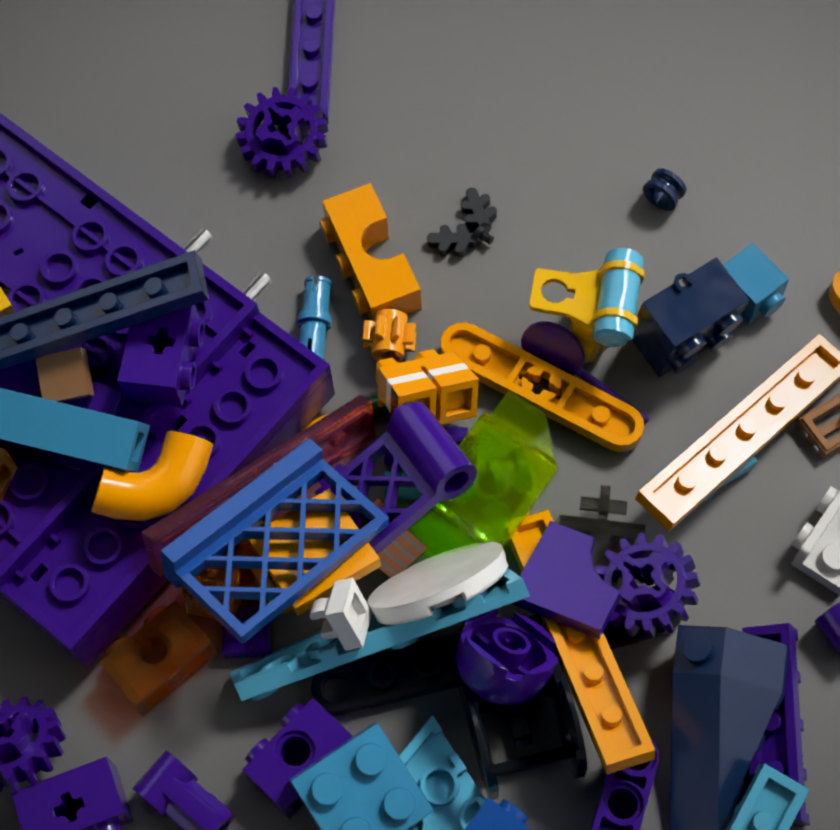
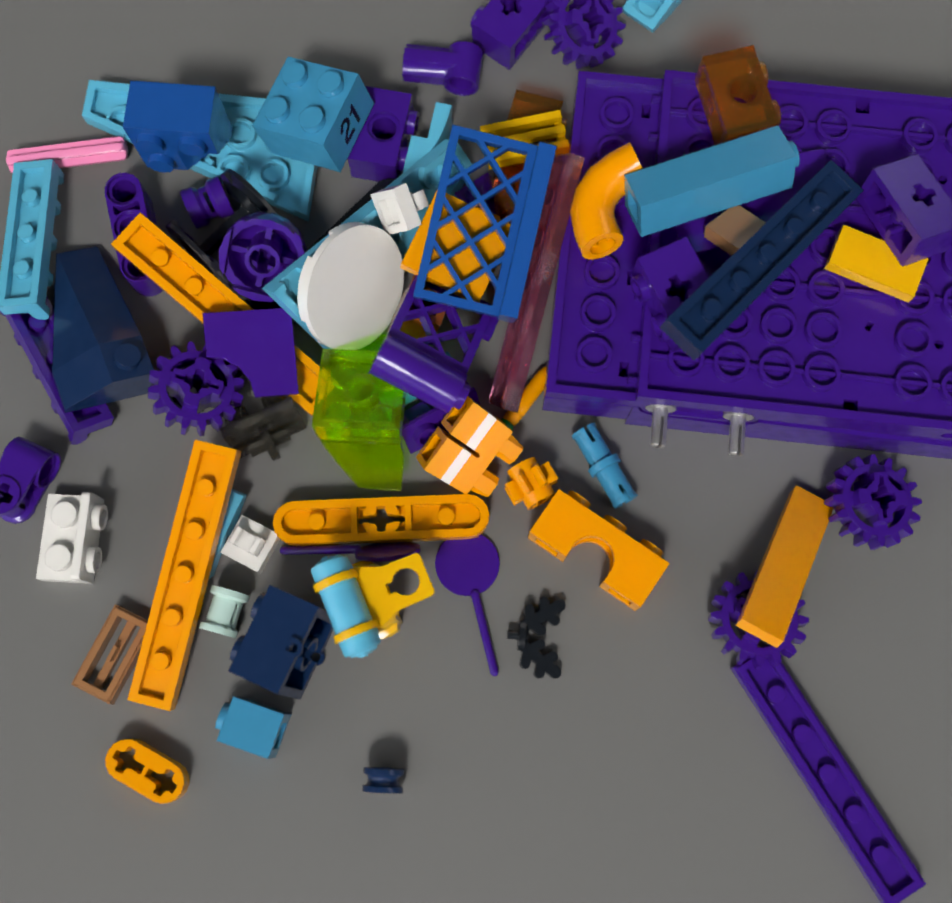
camera: 145 degrees right, 10 degrees up
(117, 158) = (873, 502): none -> dark purple gear
(132, 623) = (529, 130): none -> yellow tile
(229, 149) = (785, 567): none -> light orange tile
(268, 706) = (439, 131): none -> medium azure slope
(491, 306) = (467, 570): none -> dark purple piece
(537, 793) = (198, 205): none -> dark purple wheel
(669, 436) = (251, 544): none -> white tile
(727, 388) = (224, 611): none -> light aqua bush

